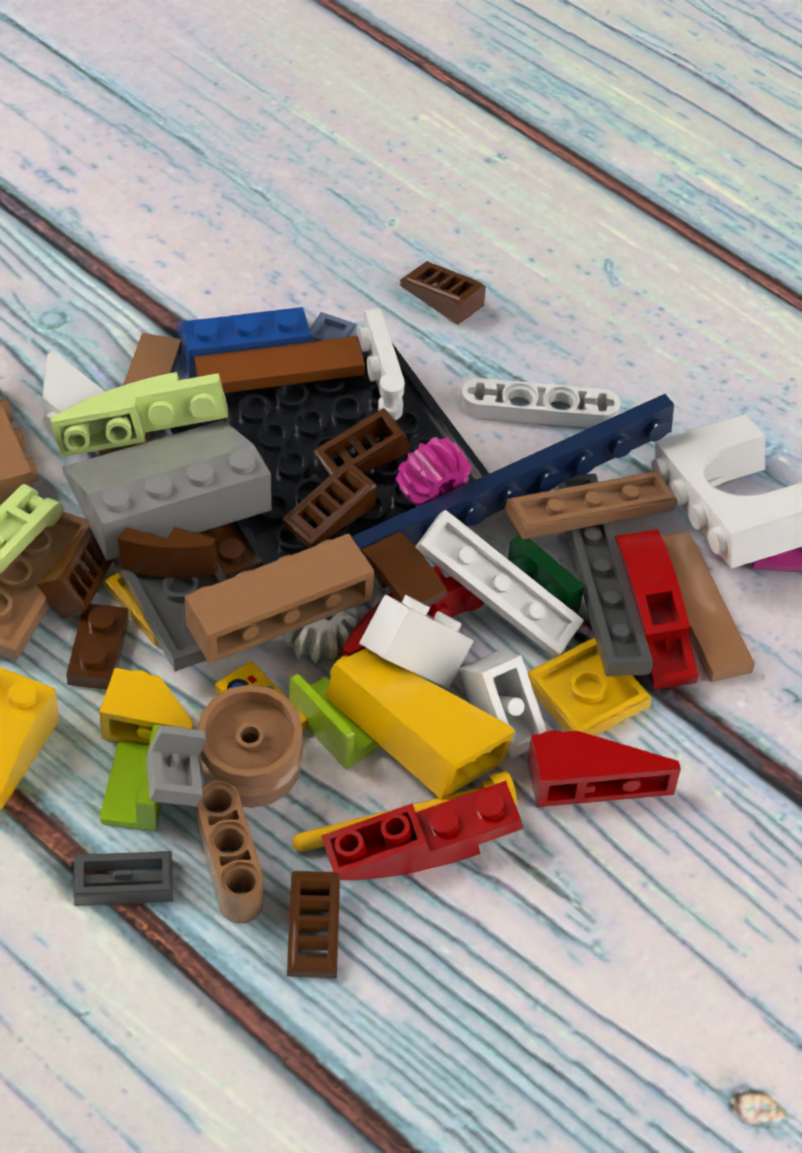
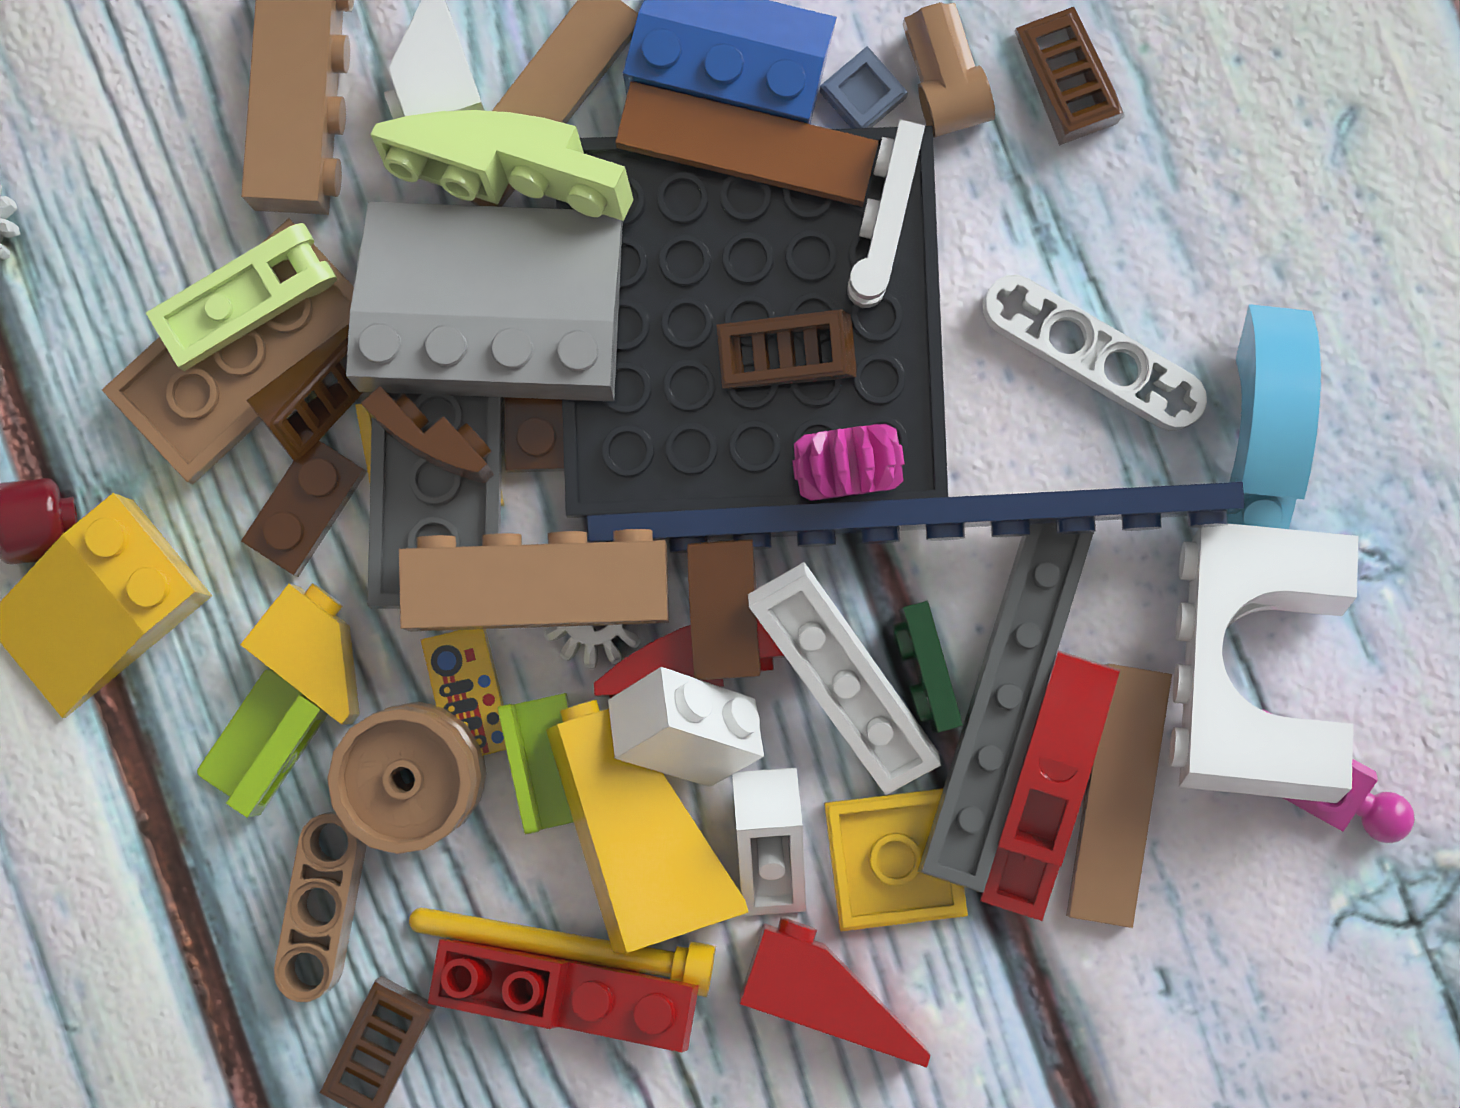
camera: 30 degrees right, 35 degrees up
(123, 885) = (238, 891): dark grey tile -> none
(175, 766) = (282, 794): light grey bracket -> none
(348, 485) = (707, 407): reddish brown slope -> none
(361, 294) = (951, 88): none -> medium nougat piece
(590, 504) = (1050, 590): medium nougat tile -> none
(661, 369) = (1279, 413): none -> medium azure arch

